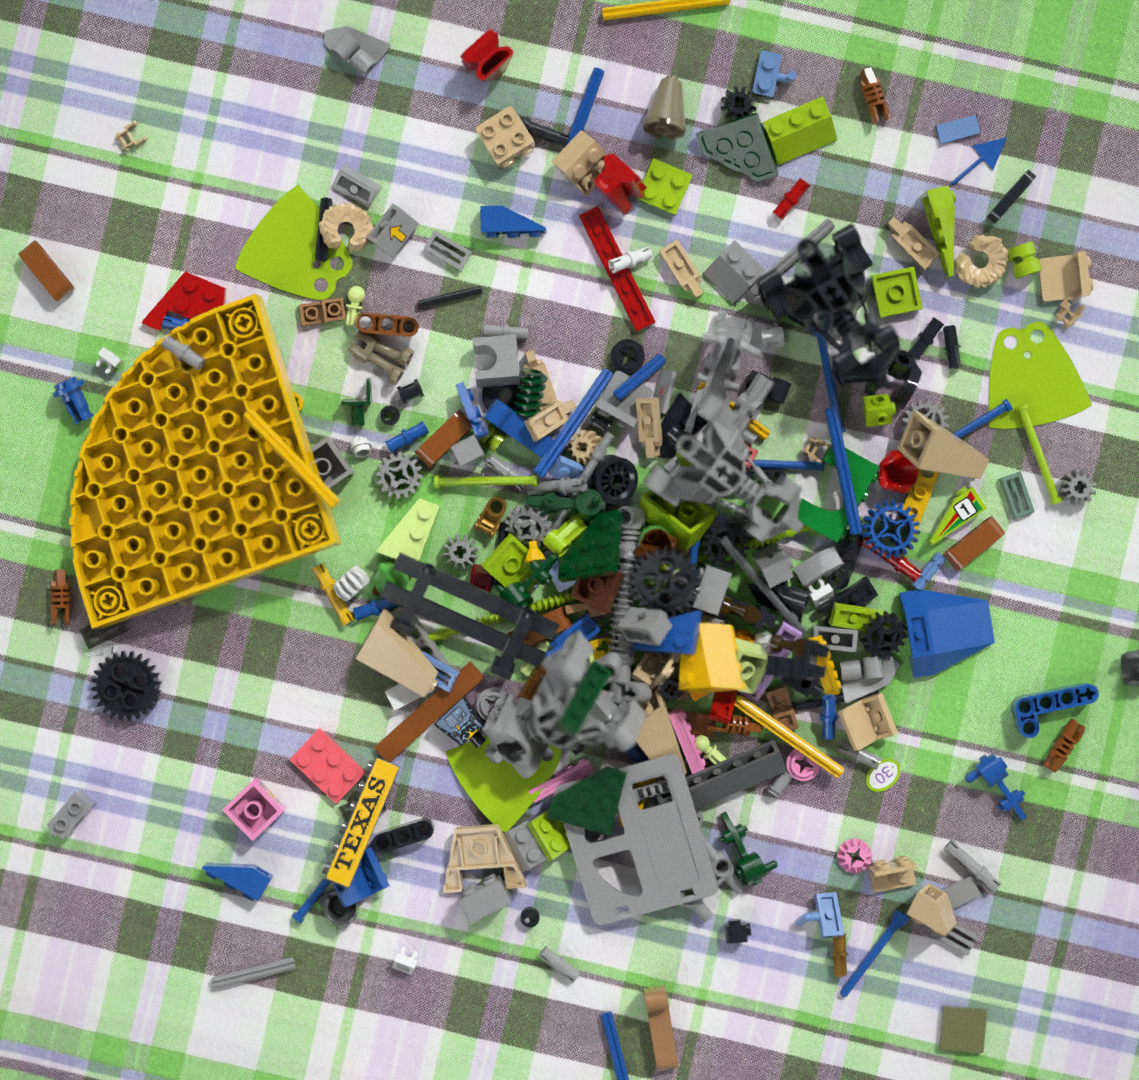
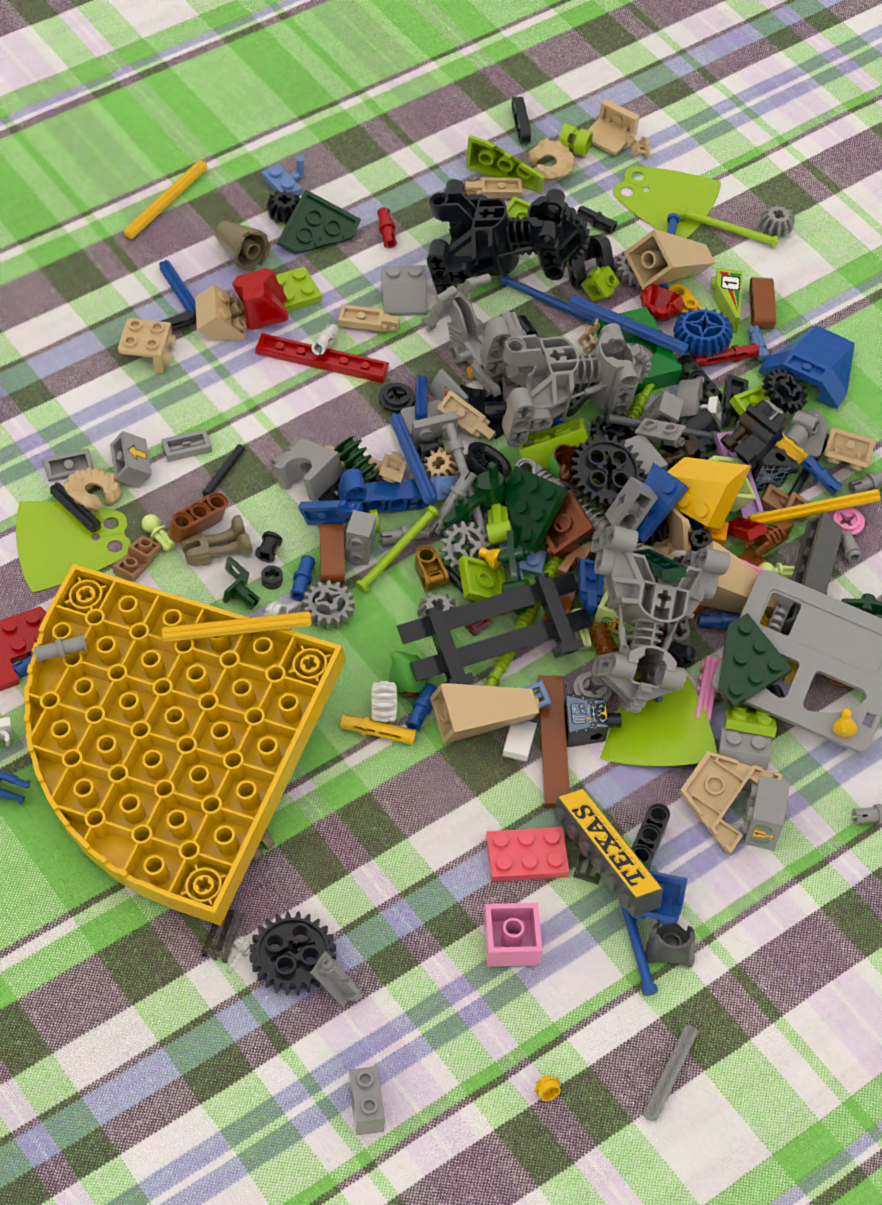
camera: 50 degrees left, 35 degrees down
(59, 597) = (156, 942): dark orange hinge -> none
(129, 730) = (335, 980): none -> light grey hinge
(176, 909) = (547, 1088): none -> yellow plate
(244, 877) = (572, 999): blue slope -> none
(405, 963) = (772, 932): white tile -> none
(412, 531) = (381, 619): yellowish green wedge -> none
(487, 57) = (75, 306): red piece -> none
(501, 220) = (207, 391): blue slope -> none
(531, 923) = (810, 811): black bush -> none
(600, 900) = (845, 725): none -> yellow rock
(742, 587) = (657, 430): none -> light grey hinge
(772, 338) = (480, 303): white tile -> none
(792, 256) = (429, 236): light grey axle -> none
(800, 130) = (345, 184): lime slope -> none
(873, 96) = (365, 138): dark orange hinge -> none
(957, 129) = (440, 118): medium blue piece -> none
(989, 153) = (476, 114): blue piece -> none
(1008, 496) = (748, 260): sand green tile -> none

